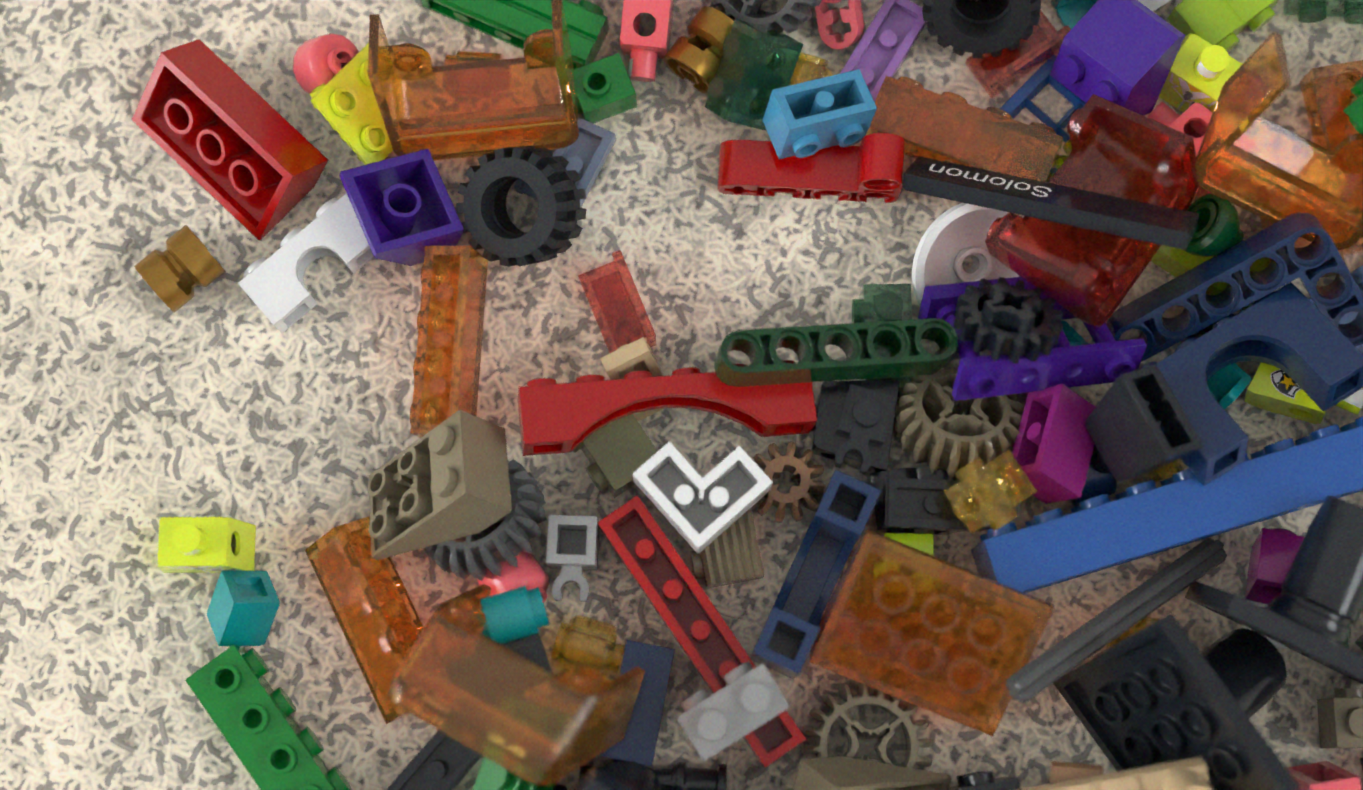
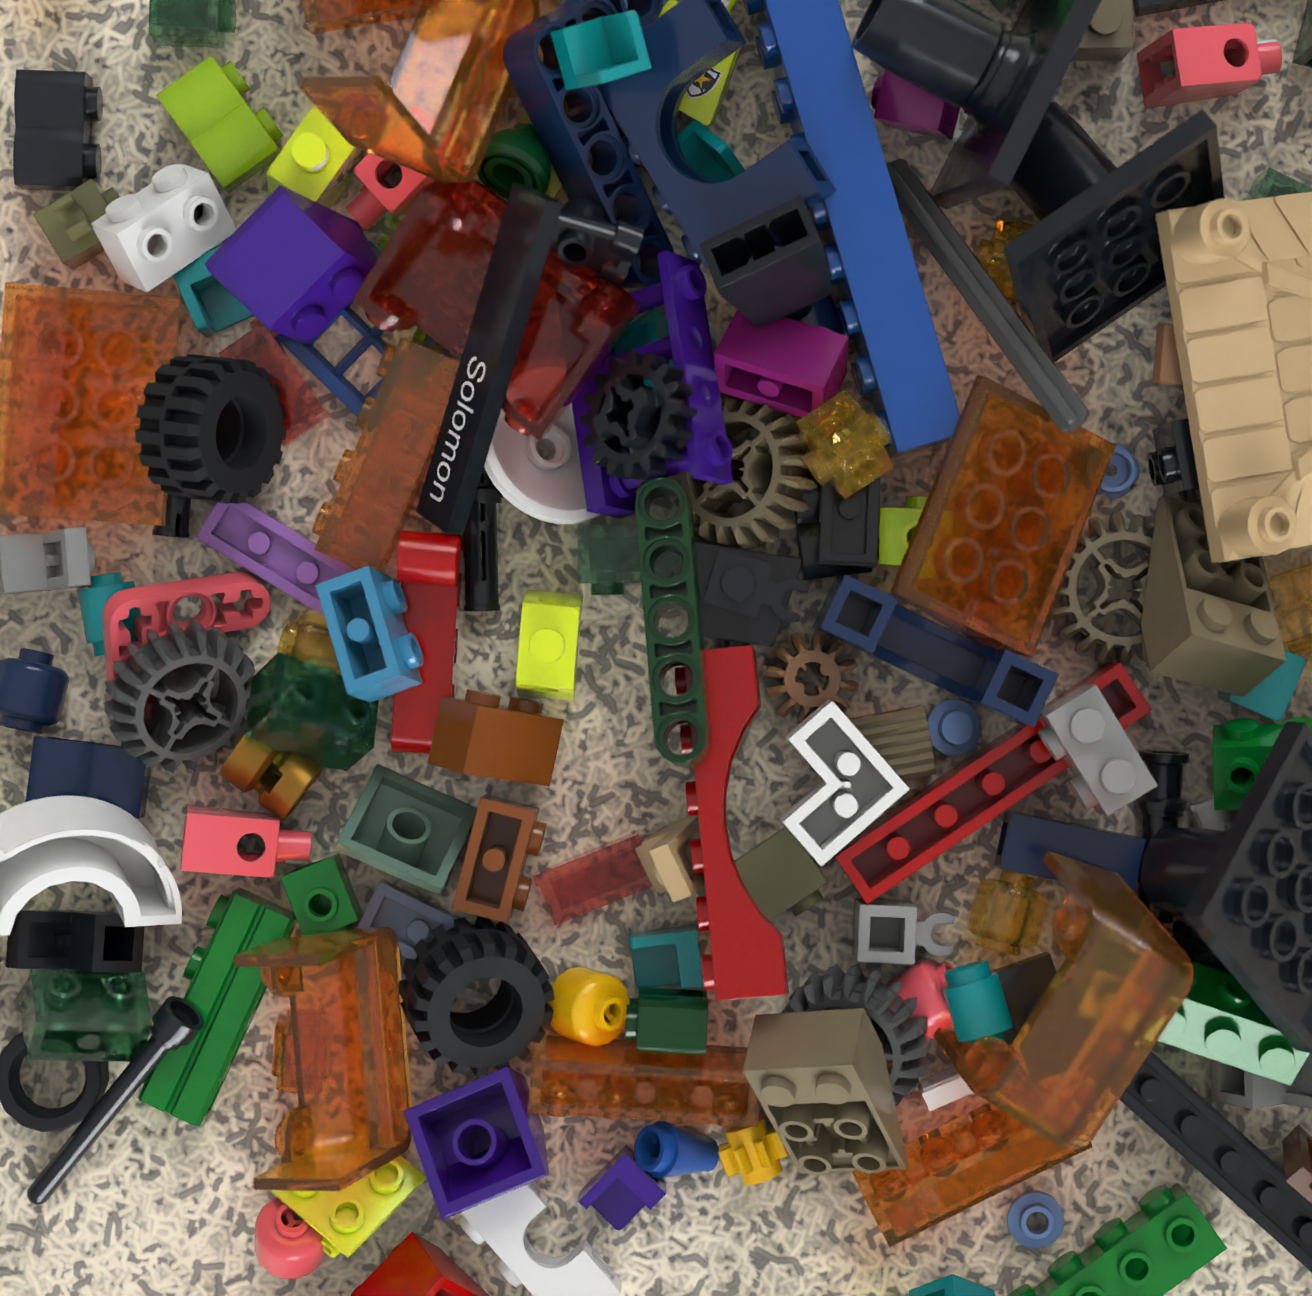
camera: 85 degrees left, 10 degrees up
(338, 681) = (1024, 1206): none -> medium blue plate
(359, 331) = (621, 1190): none -> dark purple panel
(386, 434) = (752, 1153): none -> yellow gear
(390, 369) = (673, 1151): none -> blue cone
(435, 590) = (943, 1088): none -> white tile
(498, 360) = (668, 1021): none -> dark green brick
(511, 299) = (589, 1006): none -> yellow head
(551, 359) = (666, 957): none -> teal panel
(634, 224) = (496, 858): none -> dark orange brick
(655, 155) = (407, 830): none -> sand green slope
(732, 219) = (496, 740): none -> dark orange brick
(745, 603) = (953, 727): none -> medium blue plate
(809, 265) = (549, 645): none -> neon yellow torso
(850, 213) = (482, 594): none -> black pin
(970, 753) = (1126, 473): none -> medium blue plate
(1152, 282) = (590, 241): none -> black plate
(1313, 282) = (601, 50): none -> teal panel

